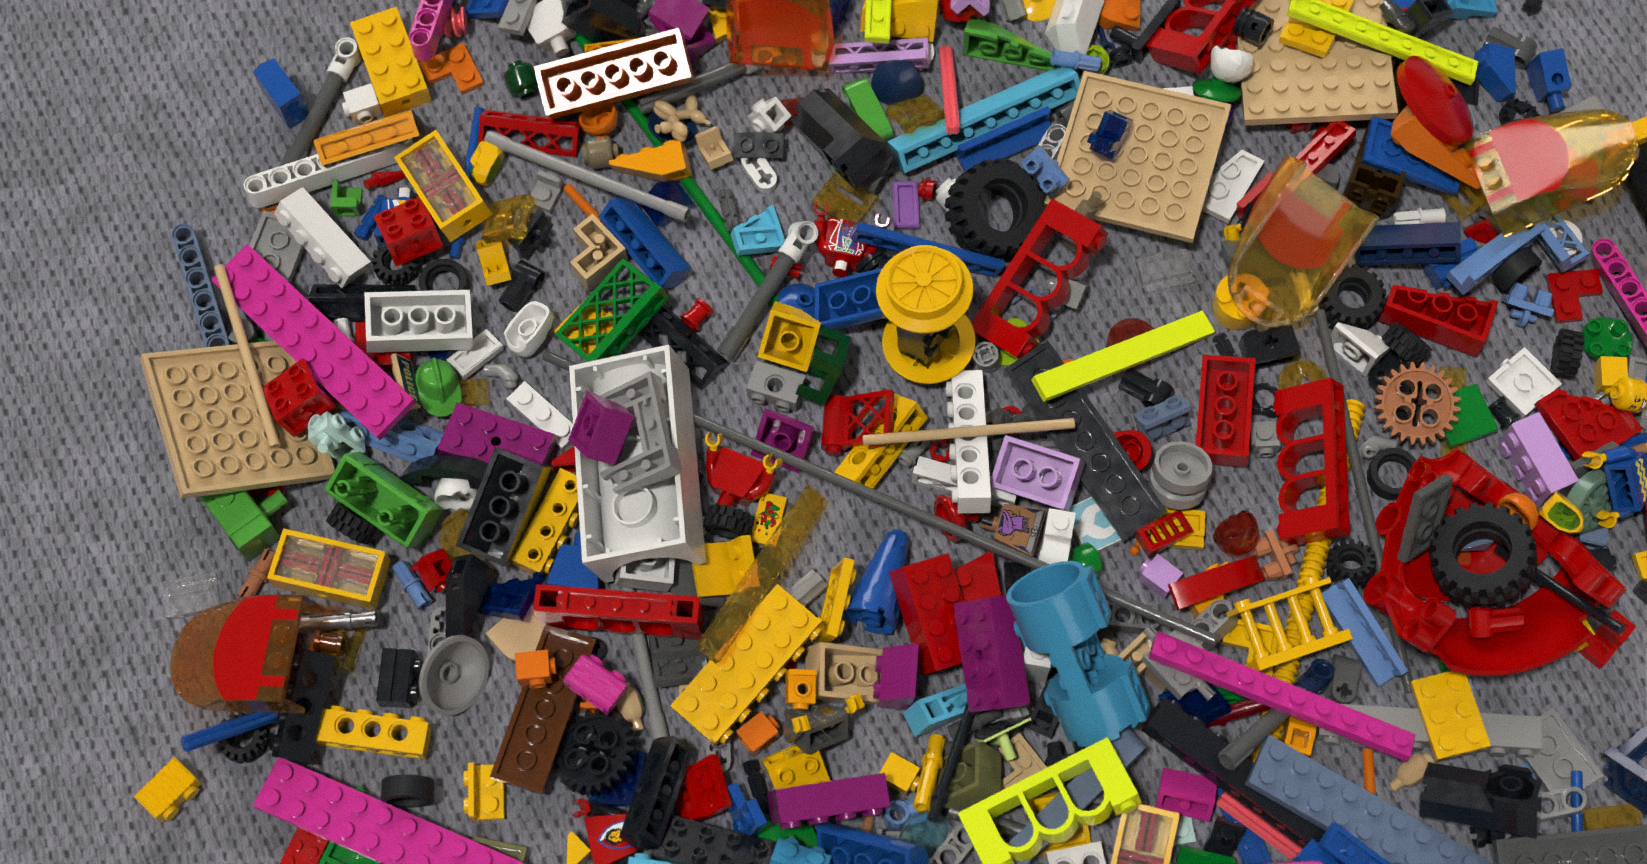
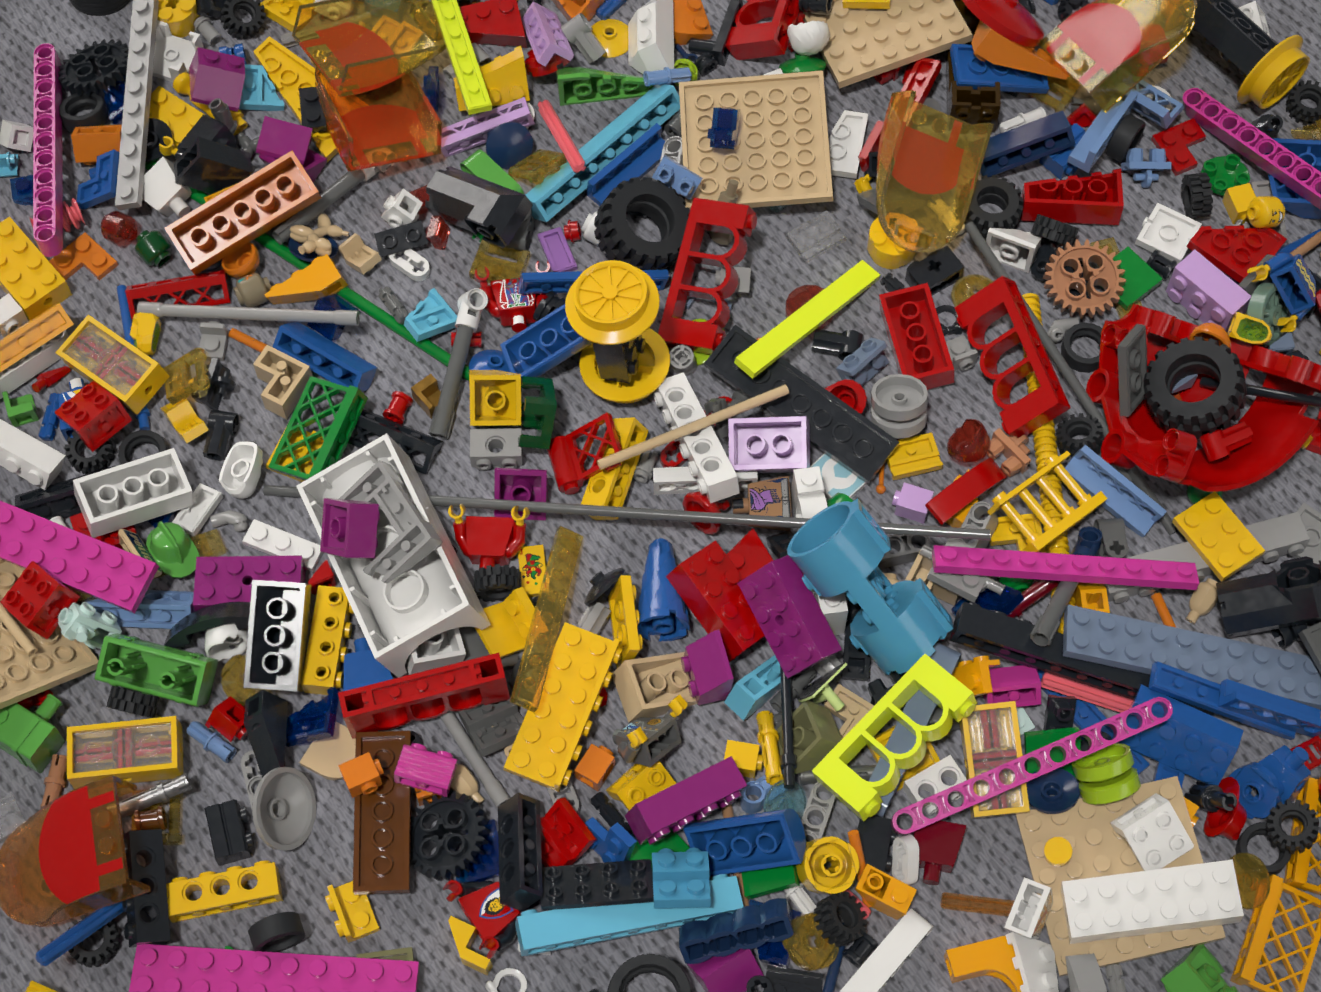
camera: 20 degrees left, 5 degrees down
(495, 48) = (119, 228): none -> clear red head
(729, 310) = (426, 394): none -> pearl gold panel
(795, 677) = (617, 717): light orange brick -> none
(796, 150) = (438, 232): none -> clear red plate
(827, 557) = (601, 583): none -> black dish
(1147, 545) = (892, 477): red slope -> none
(1150, 772) = (976, 674): none -> light orange bracket

